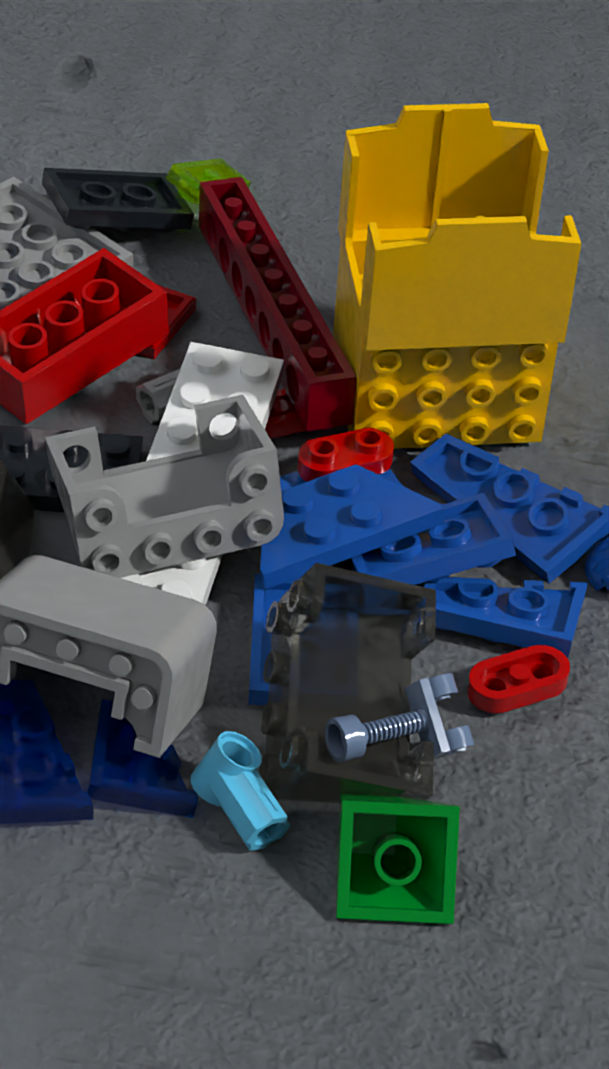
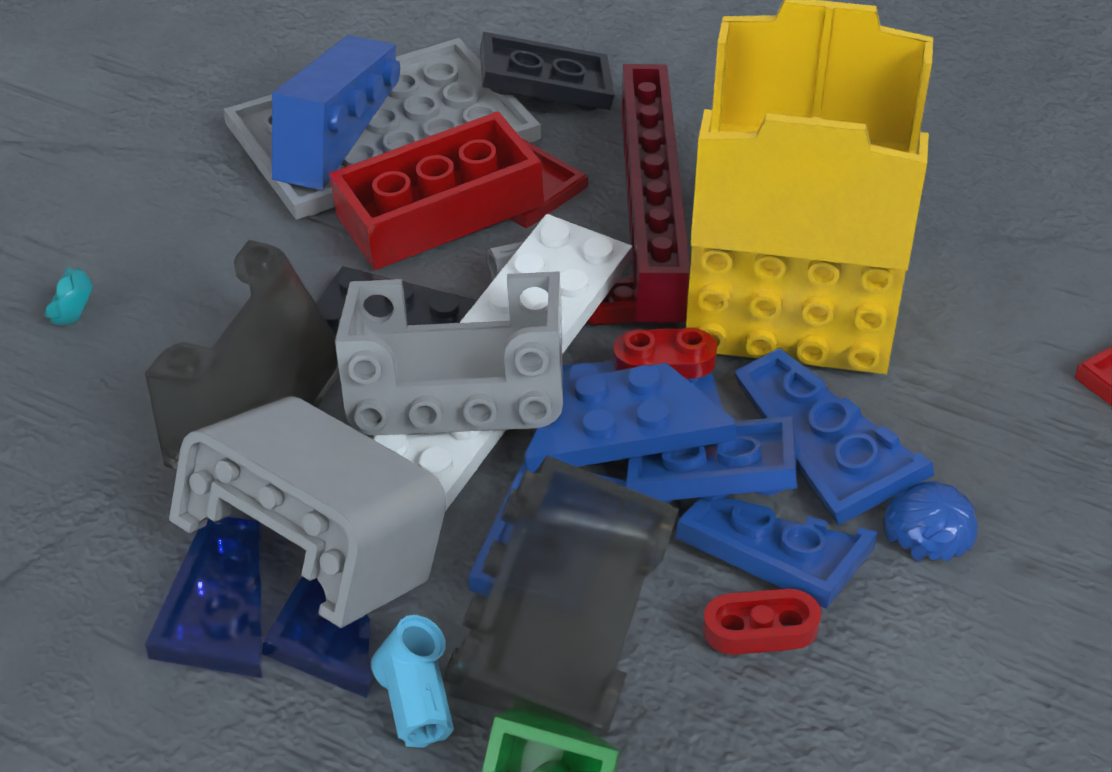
camera: 20 degrees right, 0 degrees up
(188, 175) = (615, 55): clear neon green plate -> none
(348, 737) = (544, 647): sand blue bar -> none

